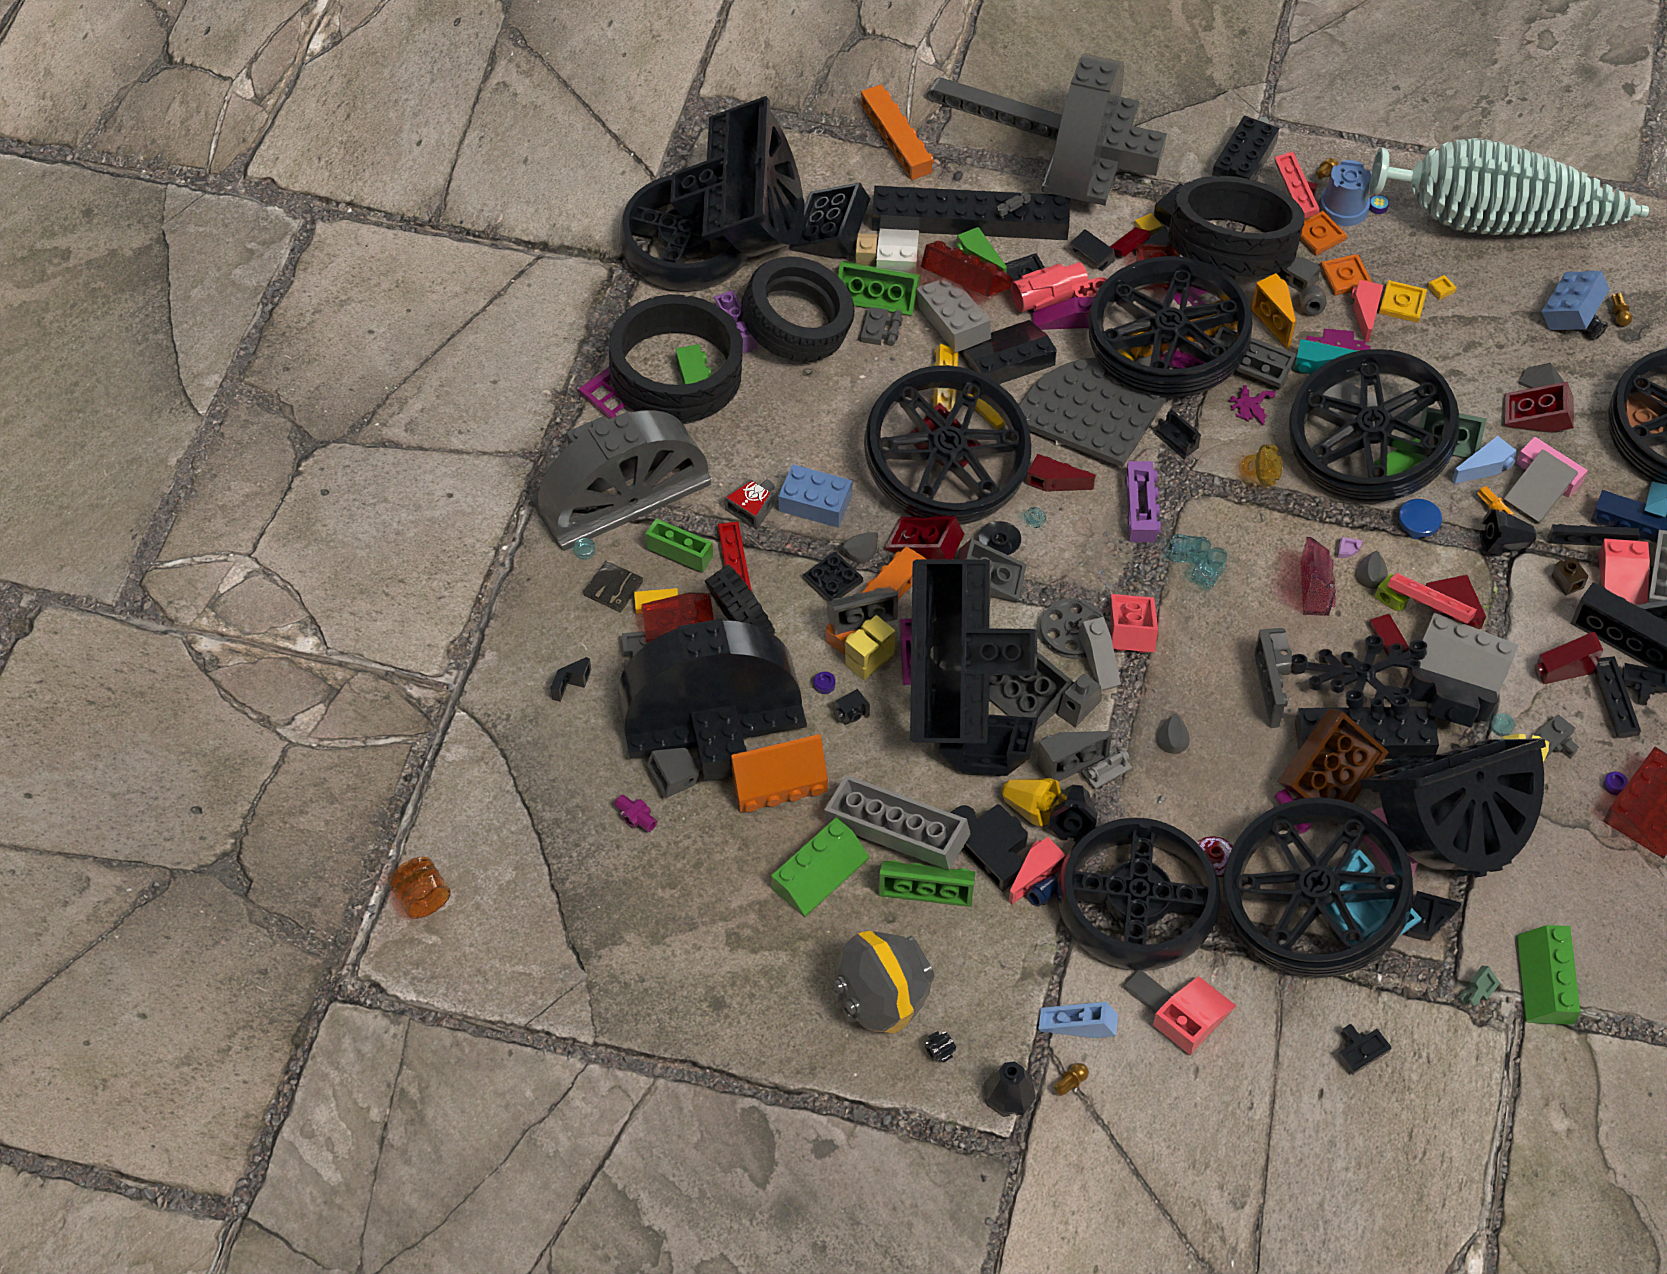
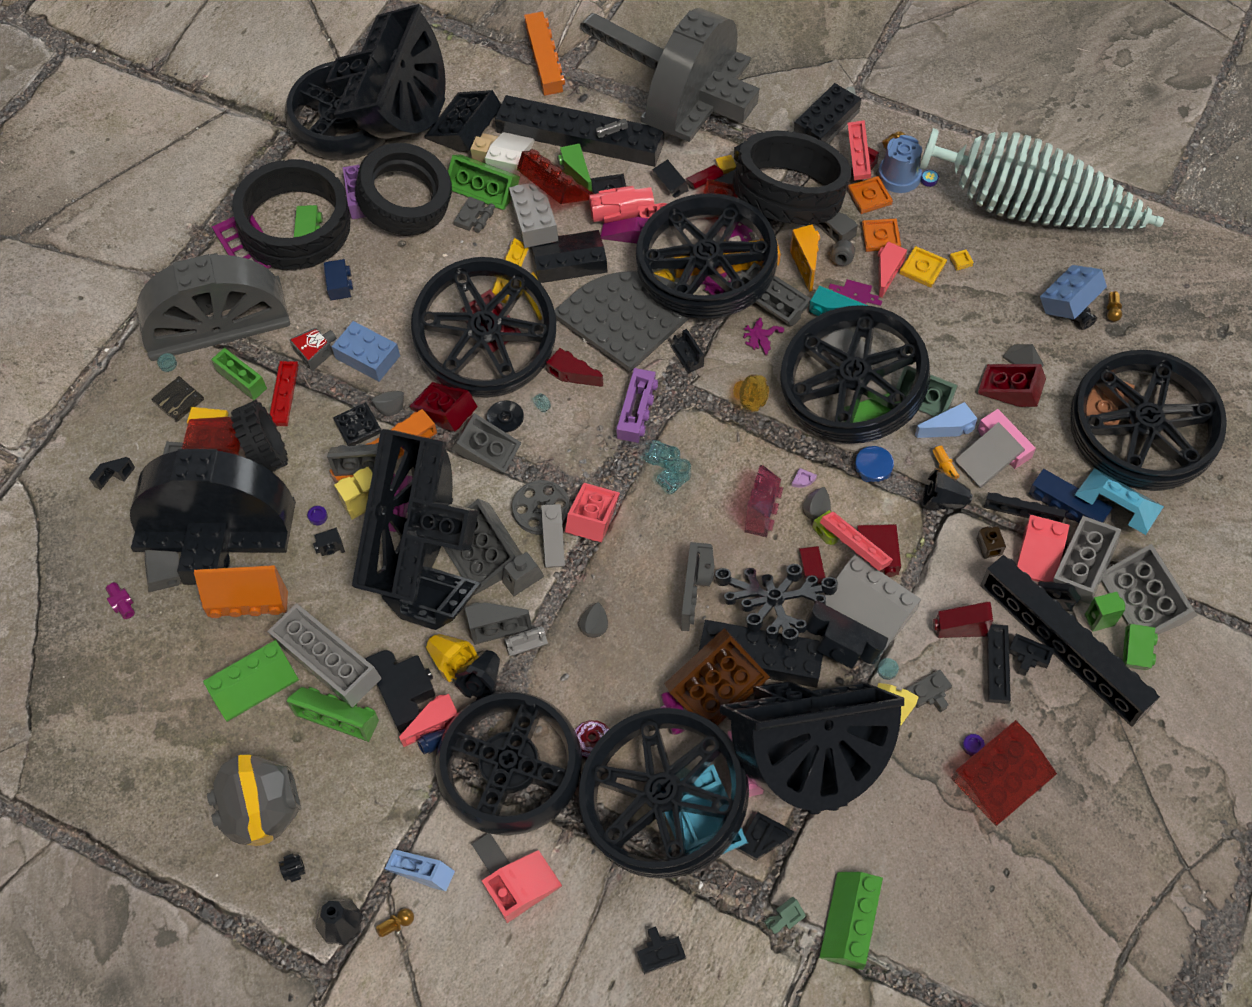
camera: 15 degrees right, 5 degrees up
(752, 423) = (337, 279): none -> dark blue brick

